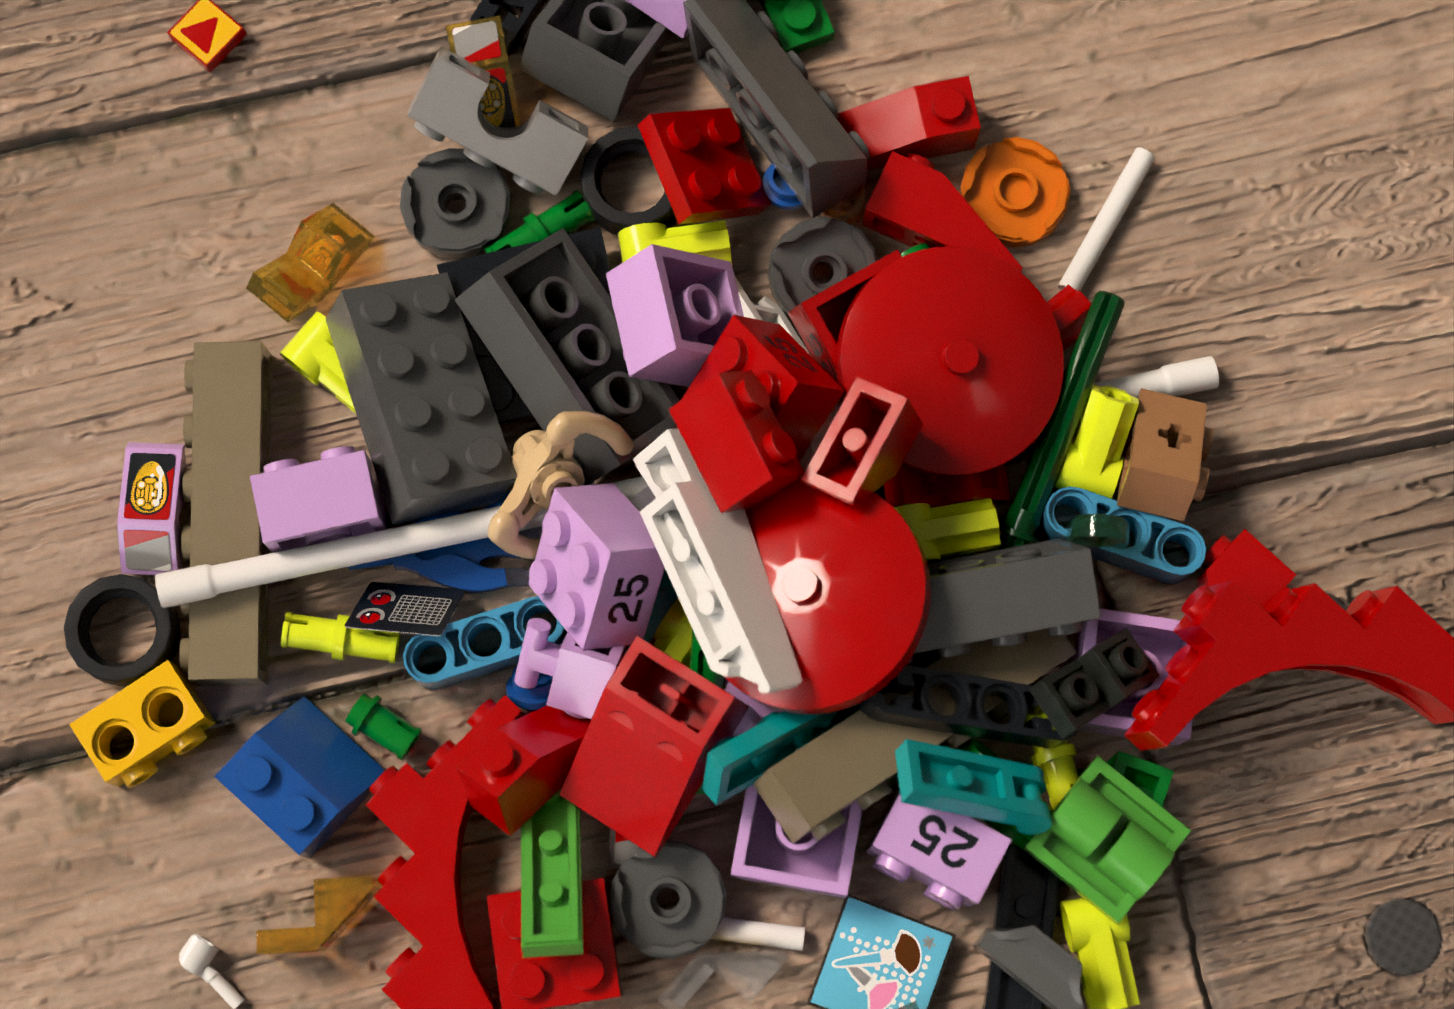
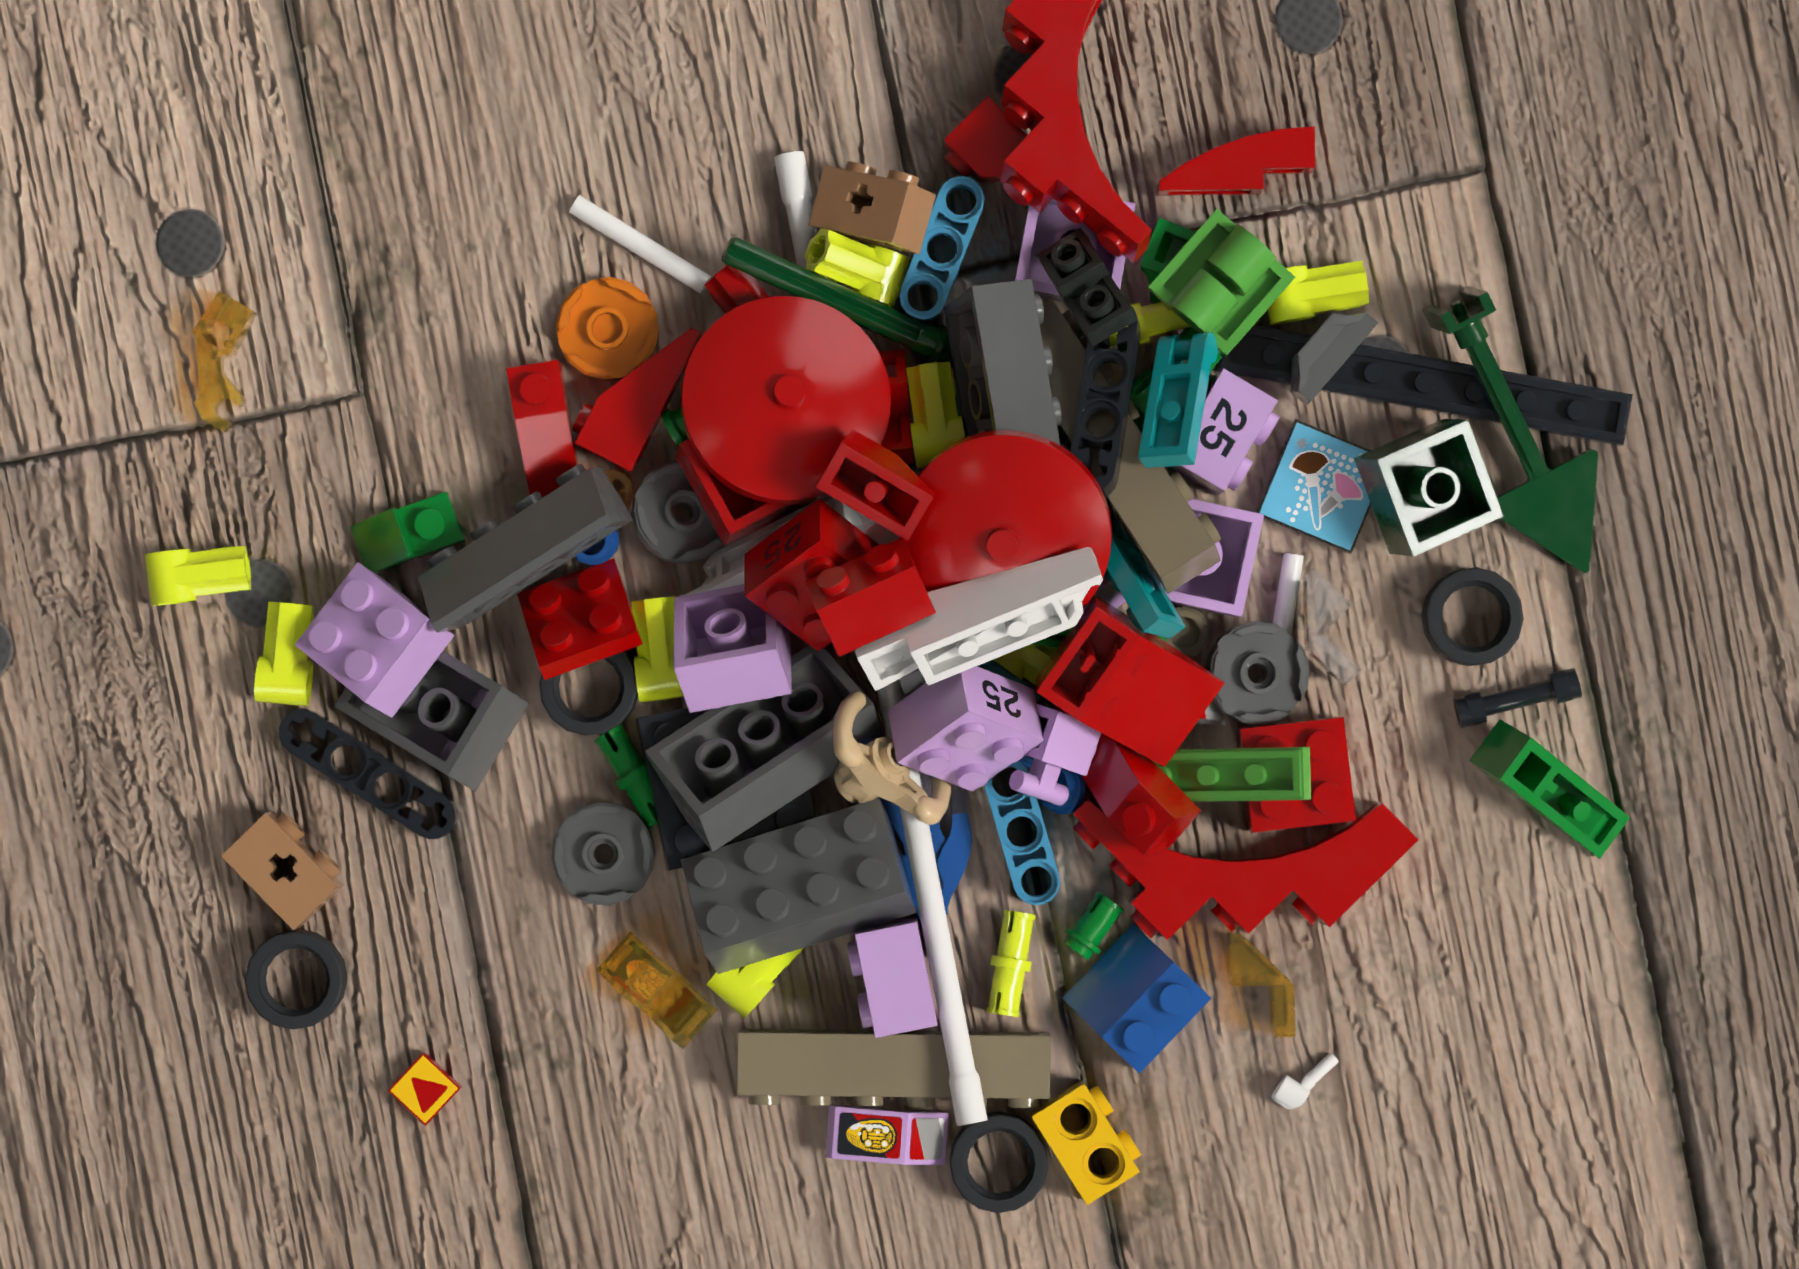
camera: 85 degrees left, 10 degrees up
(405, 608) = (988, 903): black sticker -> none
(485, 46) = (489, 823): slope -> none
(536, 151) = (560, 777): light grey arch -> none
(711, 823) = (1194, 636): none -> dark tan tile
(1099, 531) = (946, 273): clear green tile -> none
(1238, 860) = (1240, 164): none -> red slope

